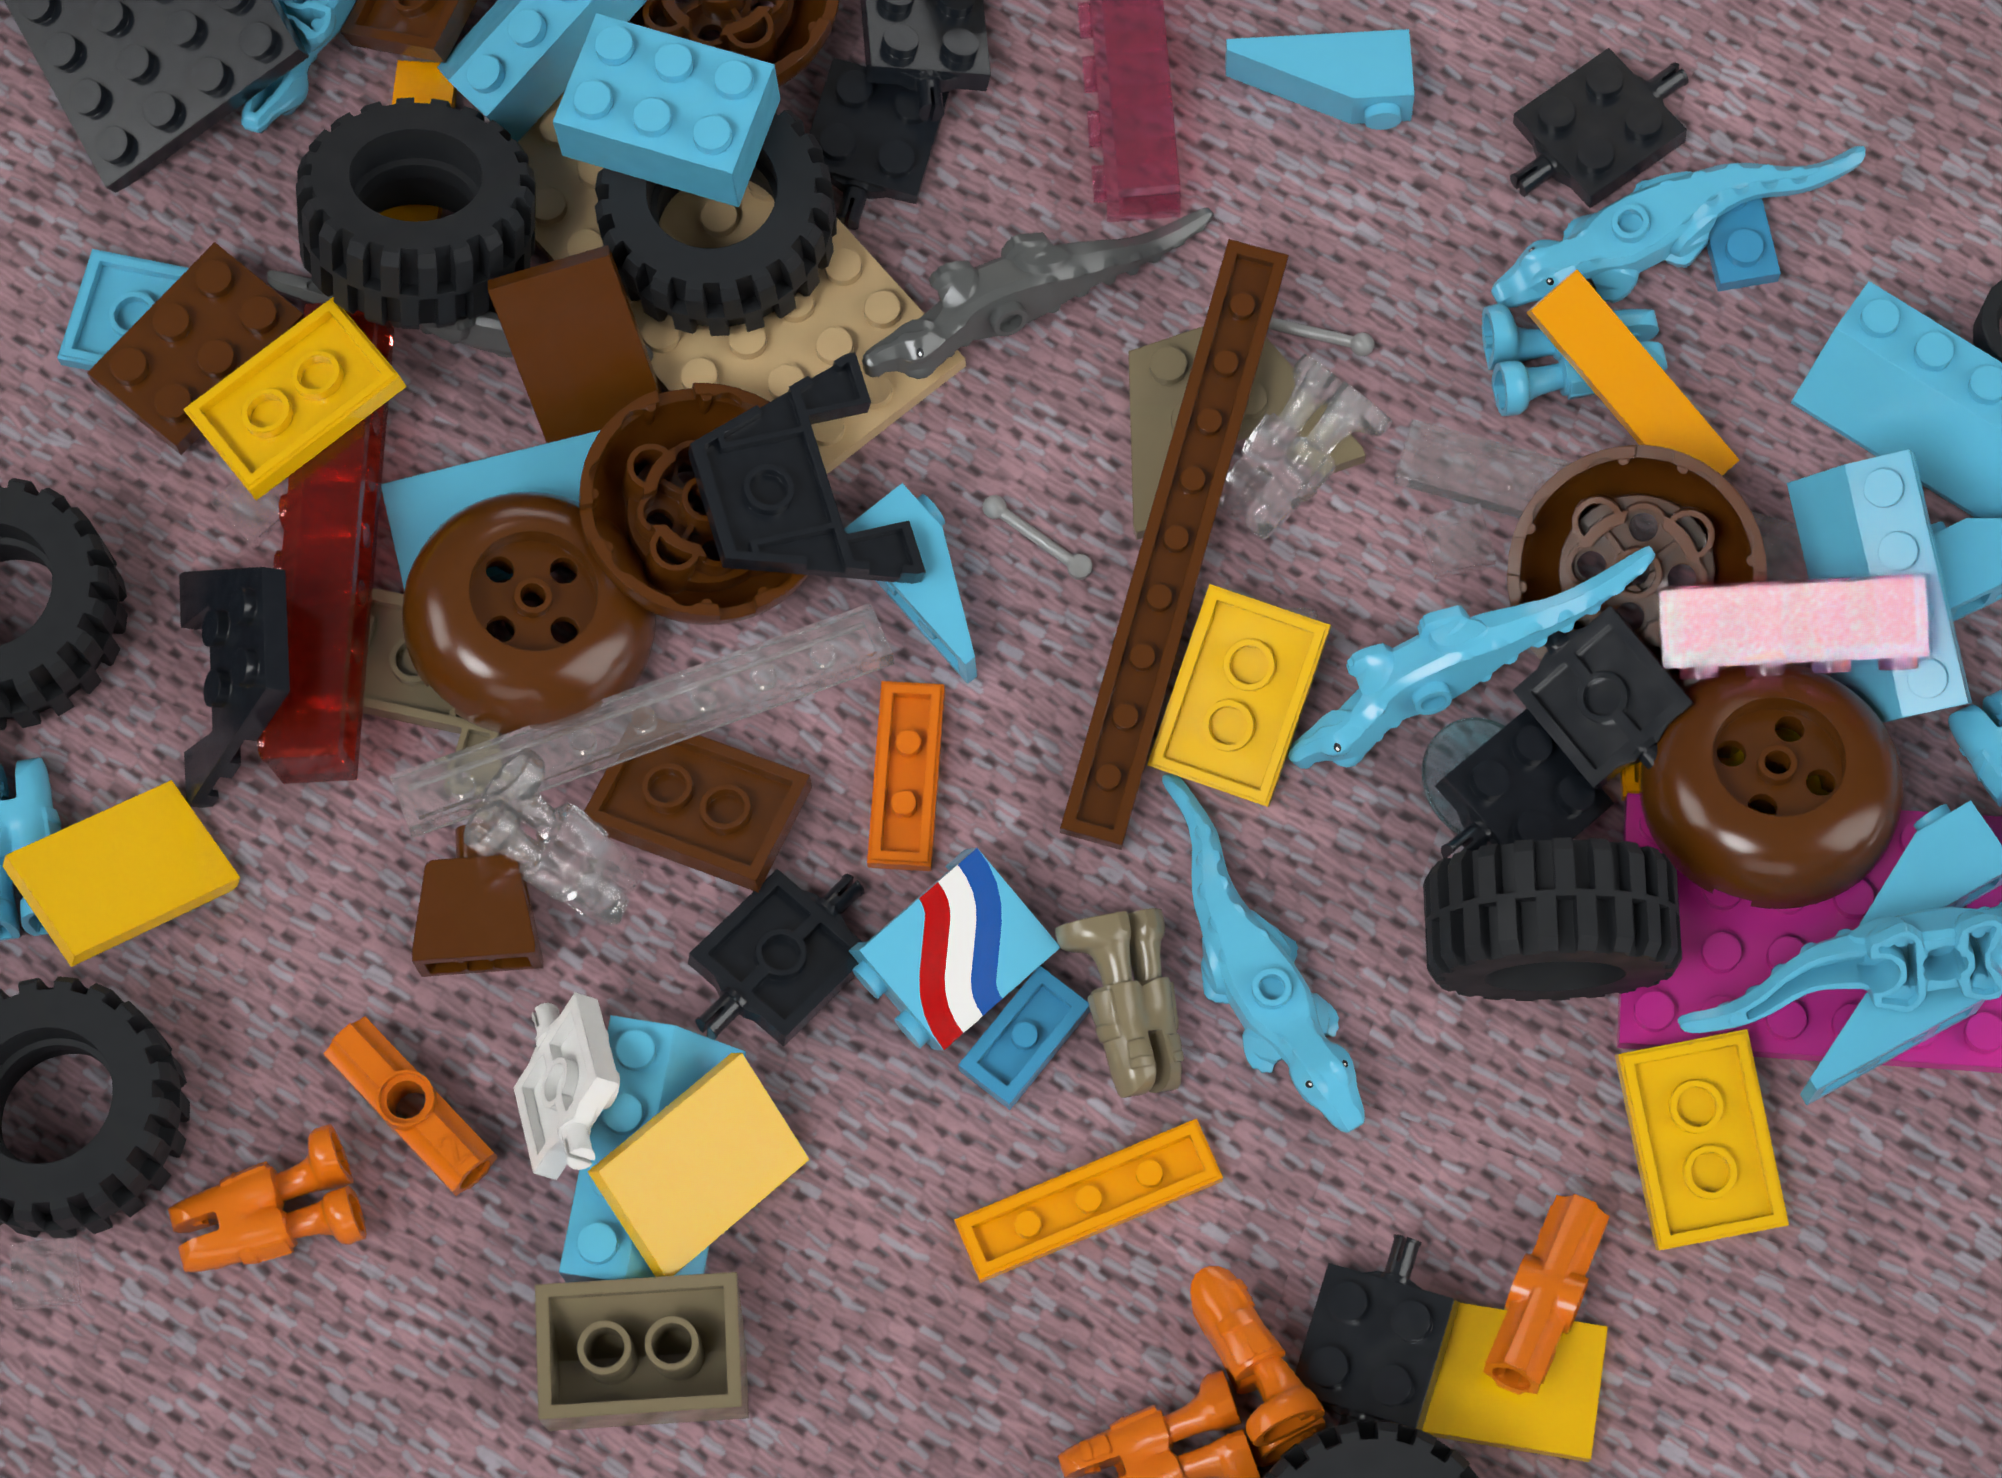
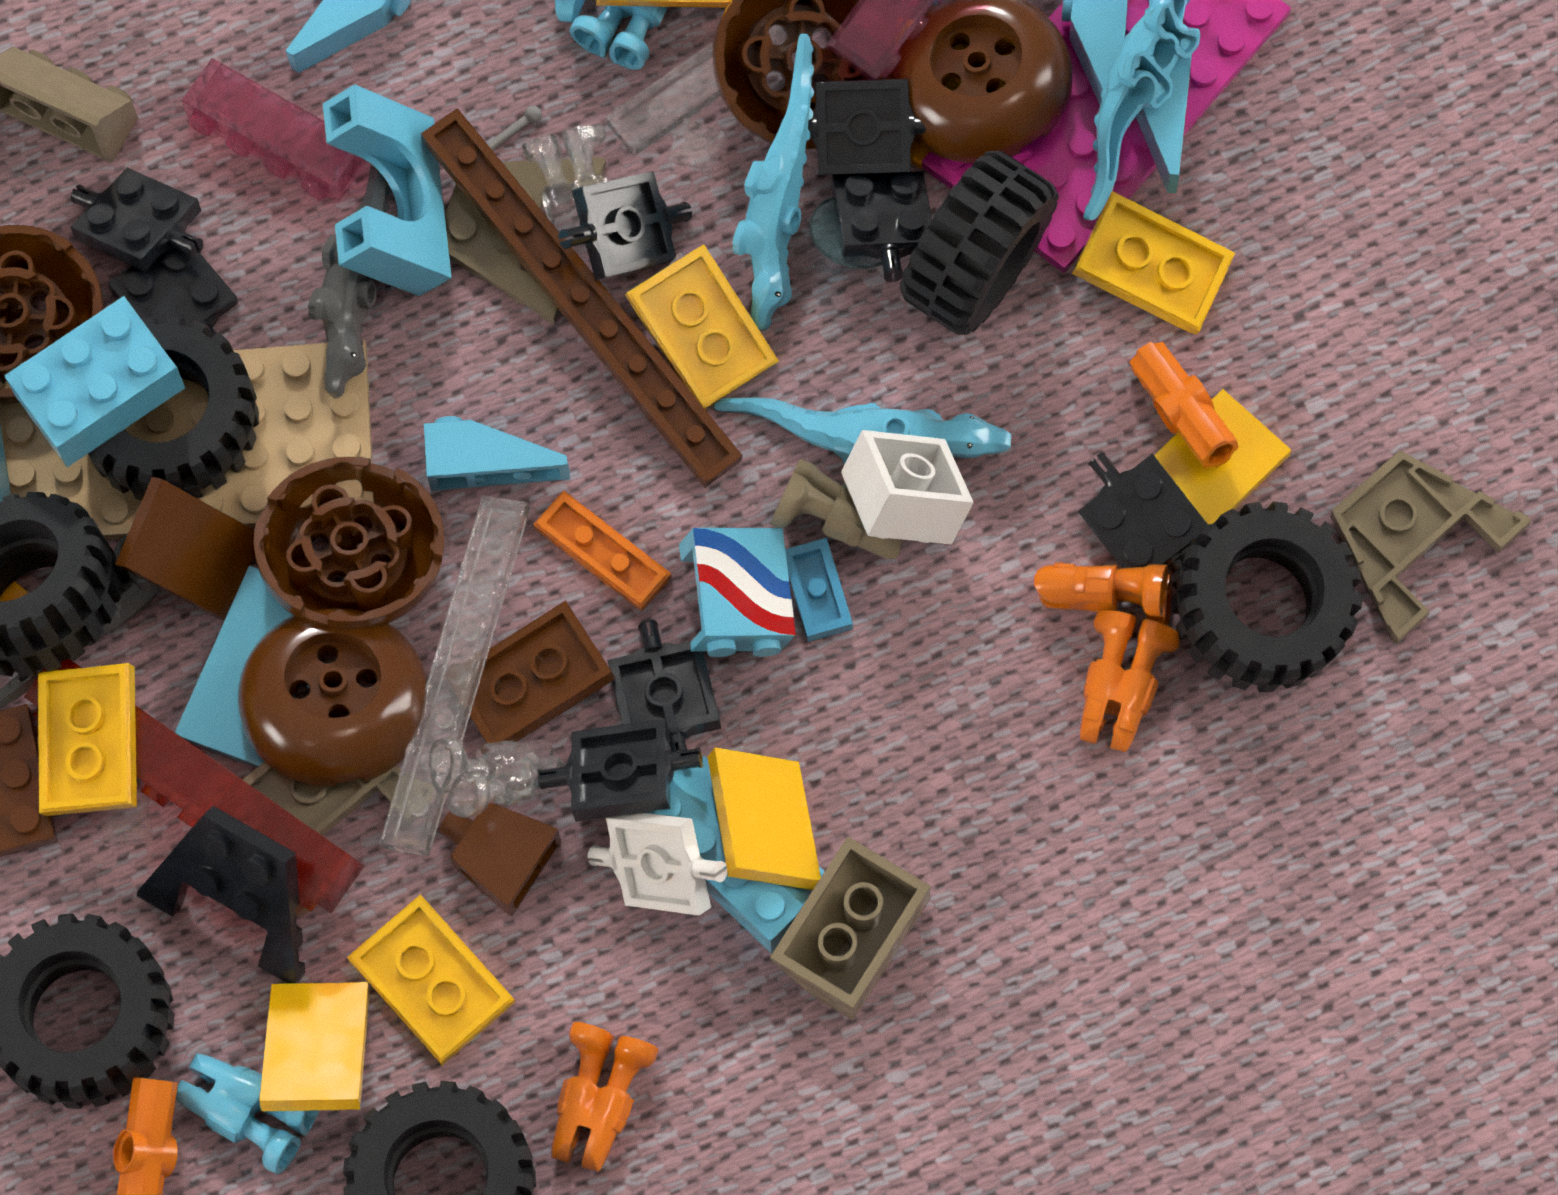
camera: 55 degrees left, 0 degrees up
(289, 942) = (431, 979): none -> yellow tile
(437, 1132) = (561, 976): orange piece -> none
(639, 969) = (620, 770): none -> black plate
(773, 496) = (379, 496): black wing -> none
(1071, 312) = (402, 250): none -> medium azure arch
(1078, 565) = (546, 367): light grey hinge -> none
(1088, 1200) = (939, 625): light orange tile -> none
(1200, 1048) = (906, 487): none -> white brick
(1291, 526) = (624, 225): none -> black plate

